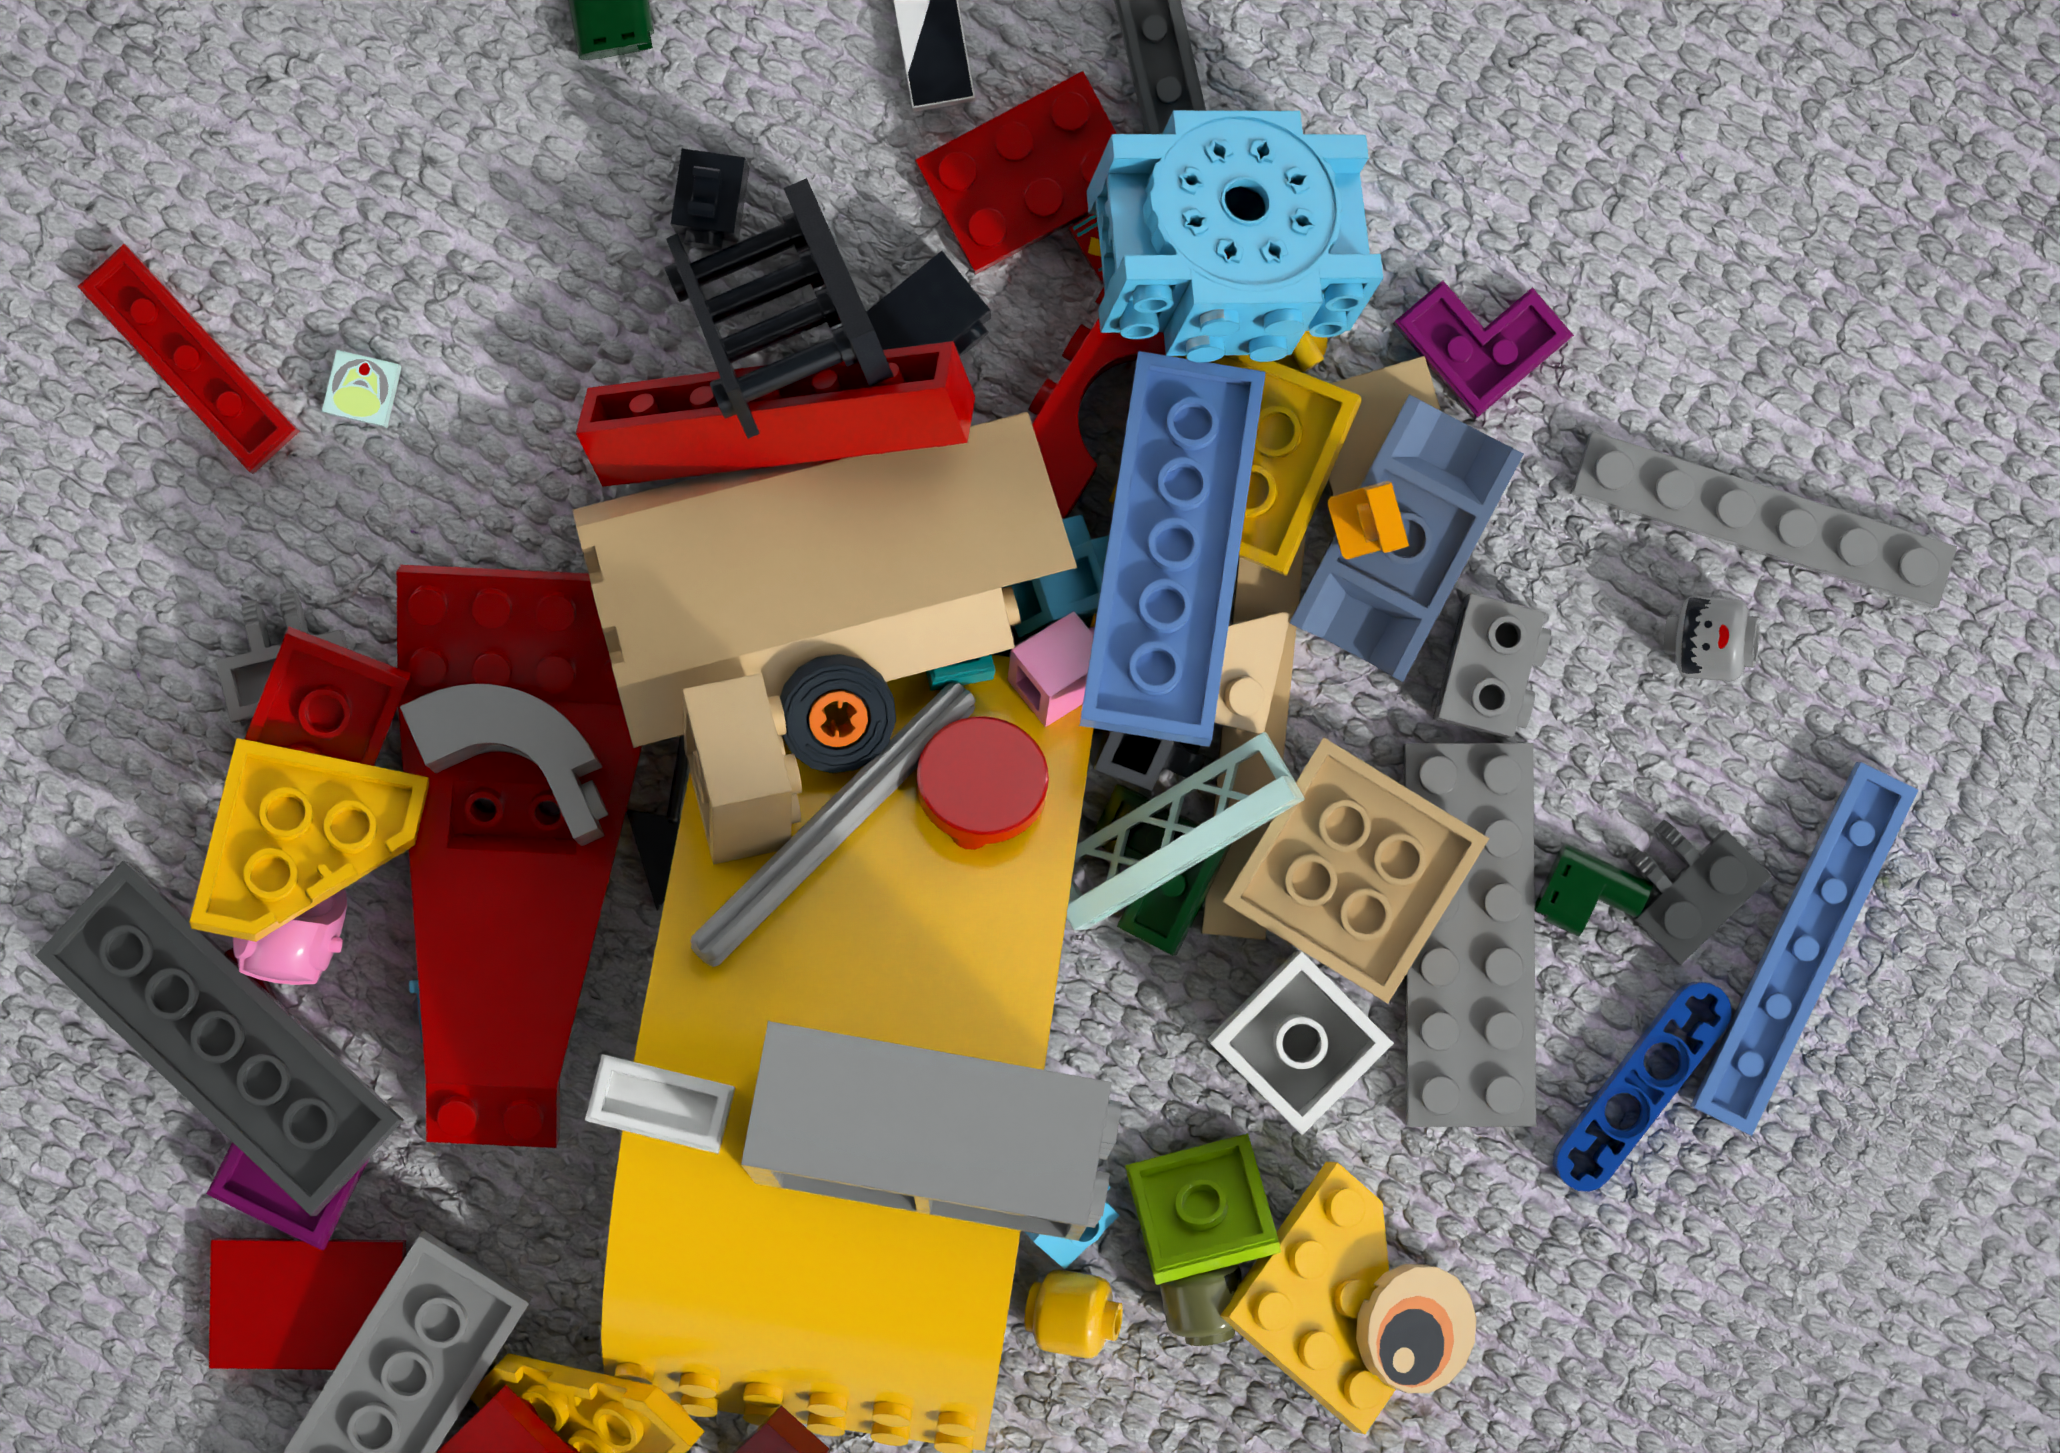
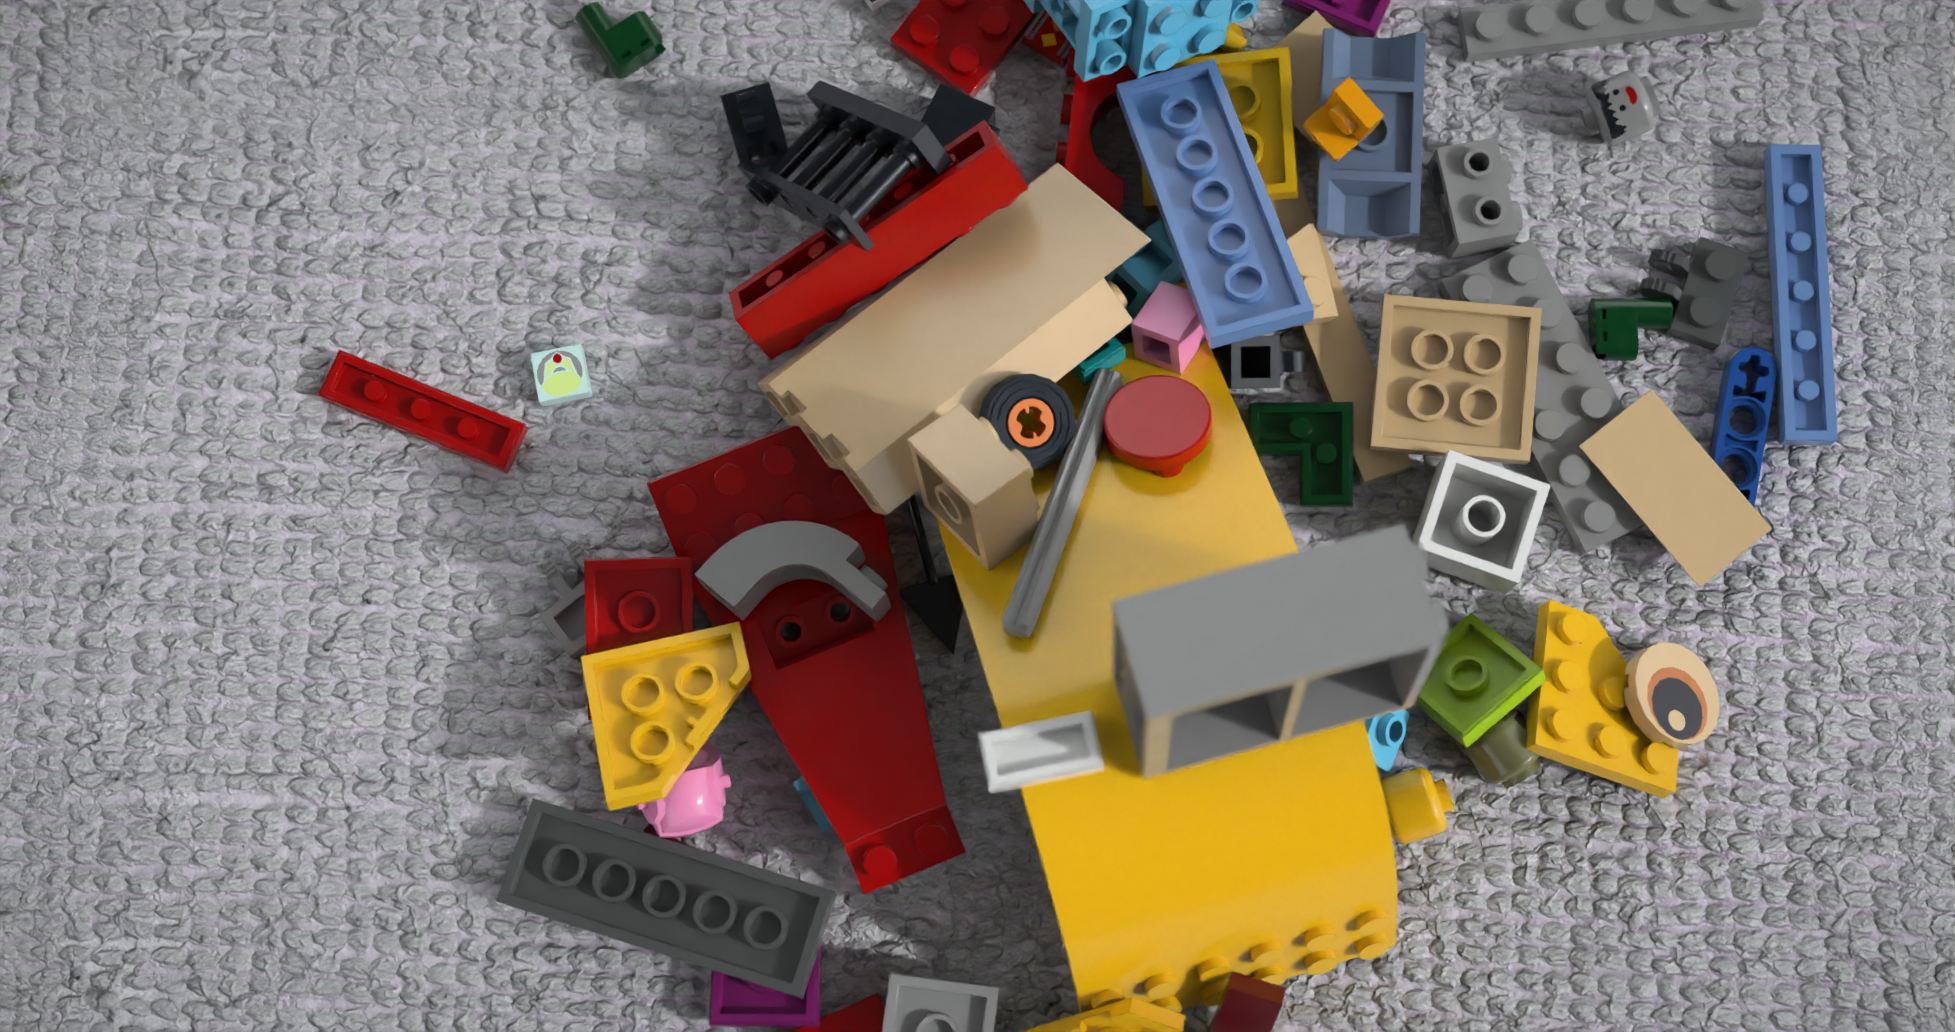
camera: 25 degrees left, 10 degrees down
(1193, 846) = (1327, 413): light aqua fence -> none
(1542, 1103) = (1675, 487): none -> tan sticker

